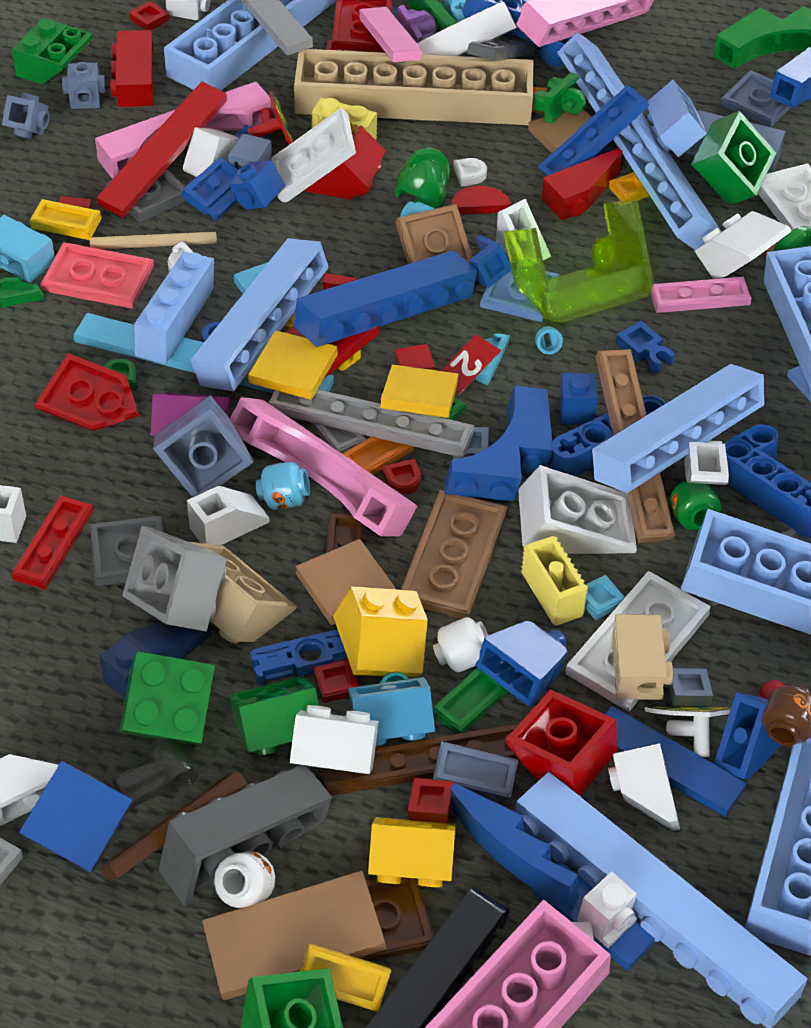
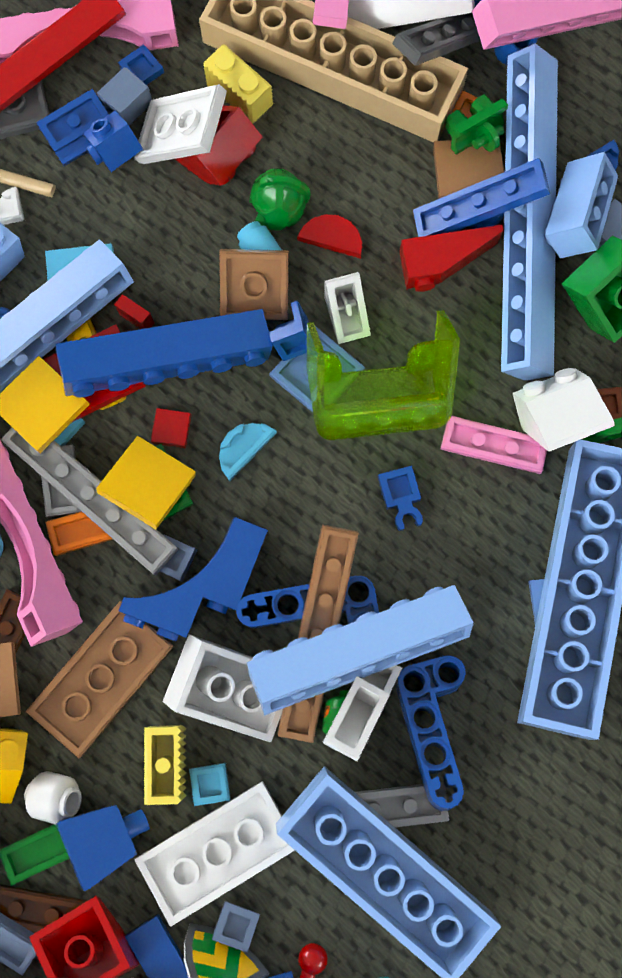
camera: 25 degrees right, 30 degrees up
(206, 148) = (91, 68): white slope -> none
(272, 124) = (170, 55): red shield -> none
(402, 476) = (95, 568): red tile -> none
(470, 171) = (343, 188): white tile -> none
(471, 361) = (217, 454): red sticker -> none
(555, 339) = (307, 458): medium azure hinge -> none
(577, 398) = (297, 544): blue brick -> none
(628, 187) = (490, 271): light orange tile -> none
(640, 657) = (193, 893): tan brick -> none

